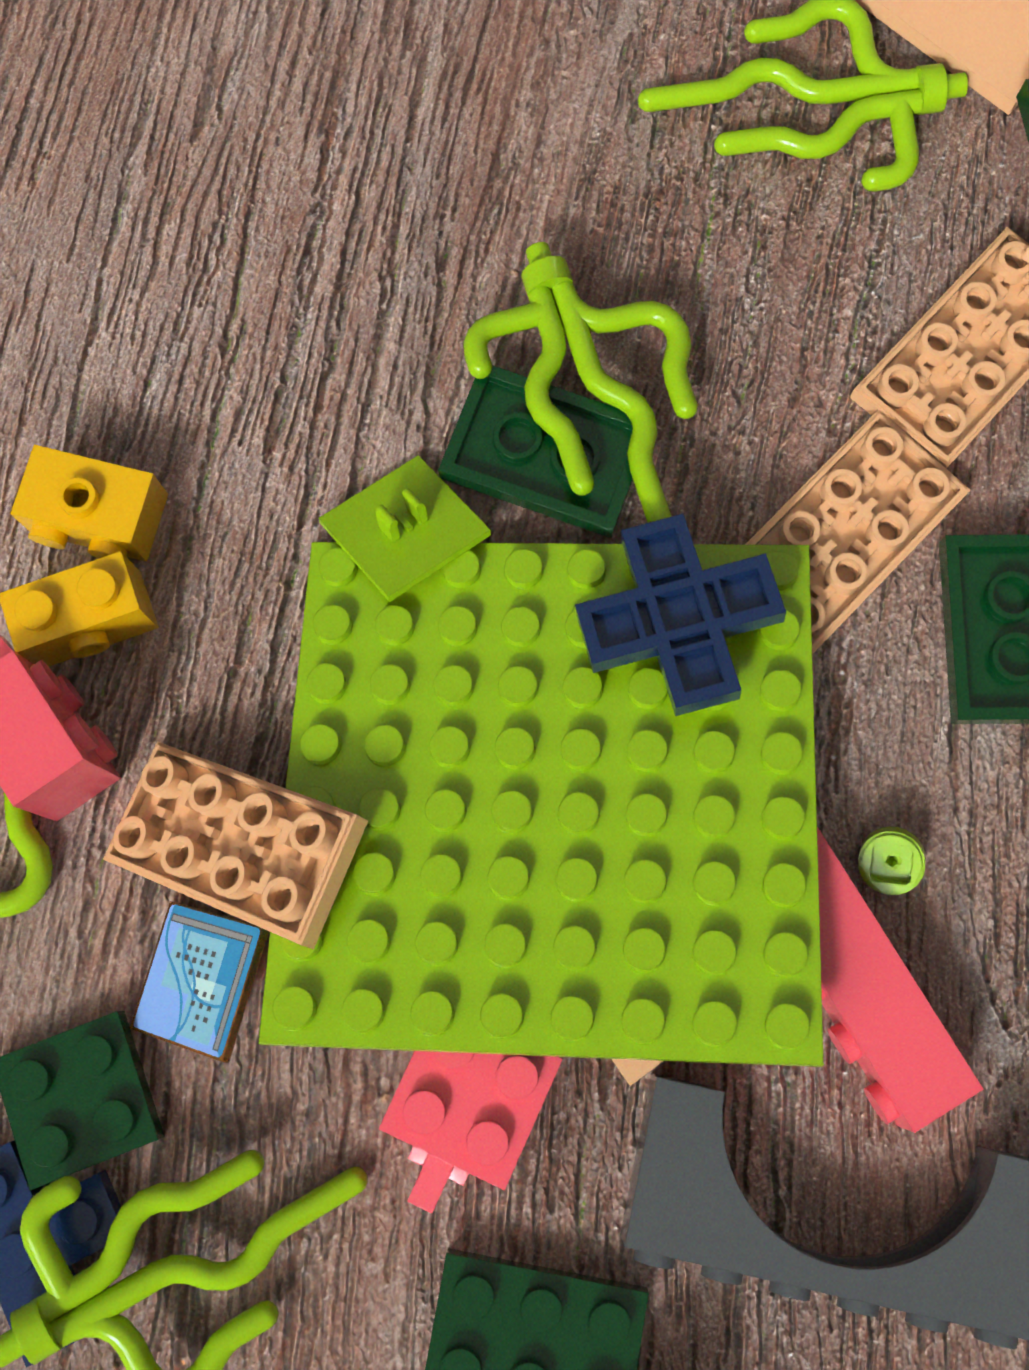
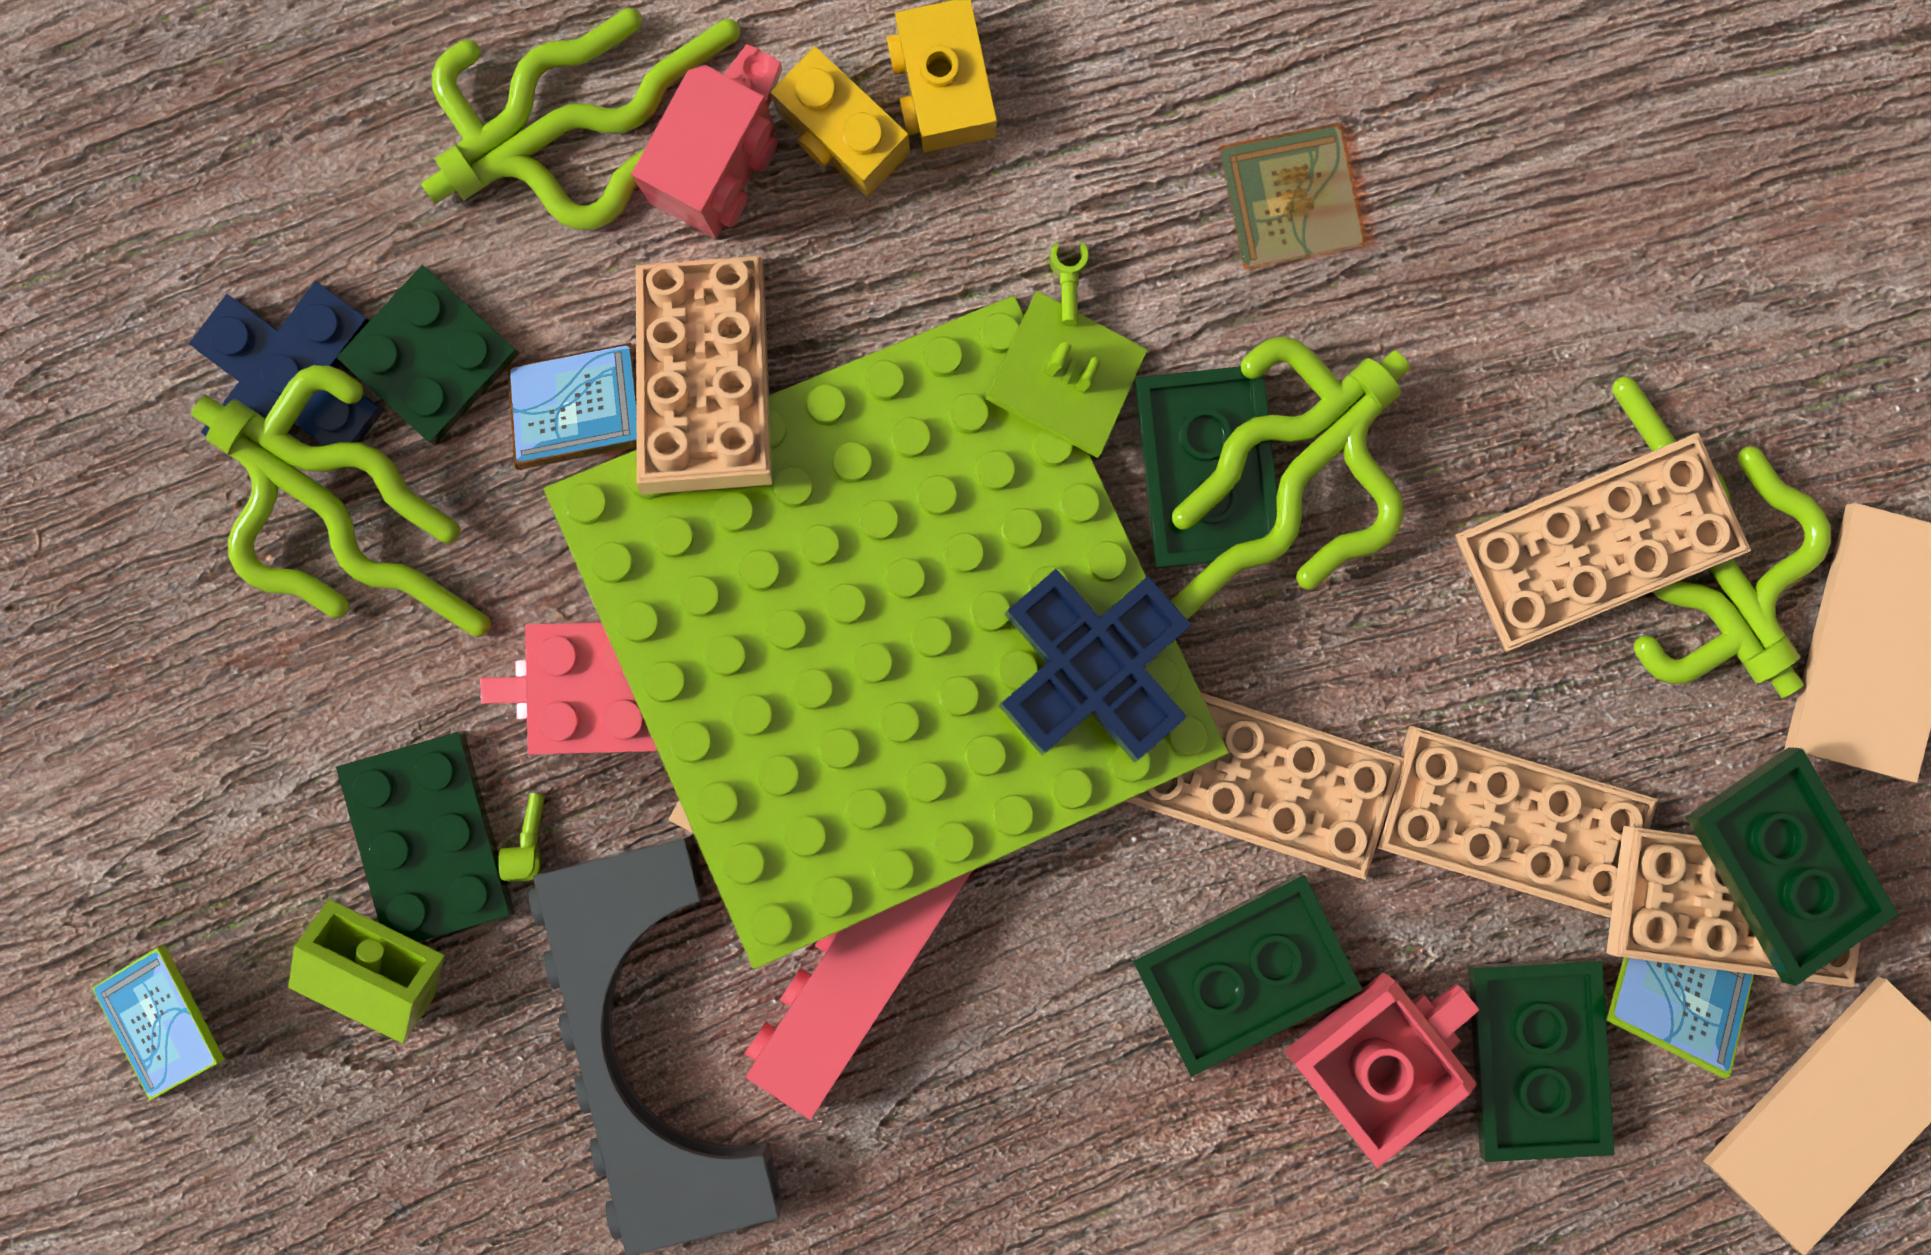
camera: 65 degrees right, 10 degrees up
(322, 487) = (1069, 282): none -> lime hand
(352, 280) = (1292, 196): none -> clear orange piece
(602, 1250) = (524, 861): none -> lime hand
(770, 170) = (1602, 542): none -> light nougat tile
(892, 860) = (977, 959): lime tile -> none

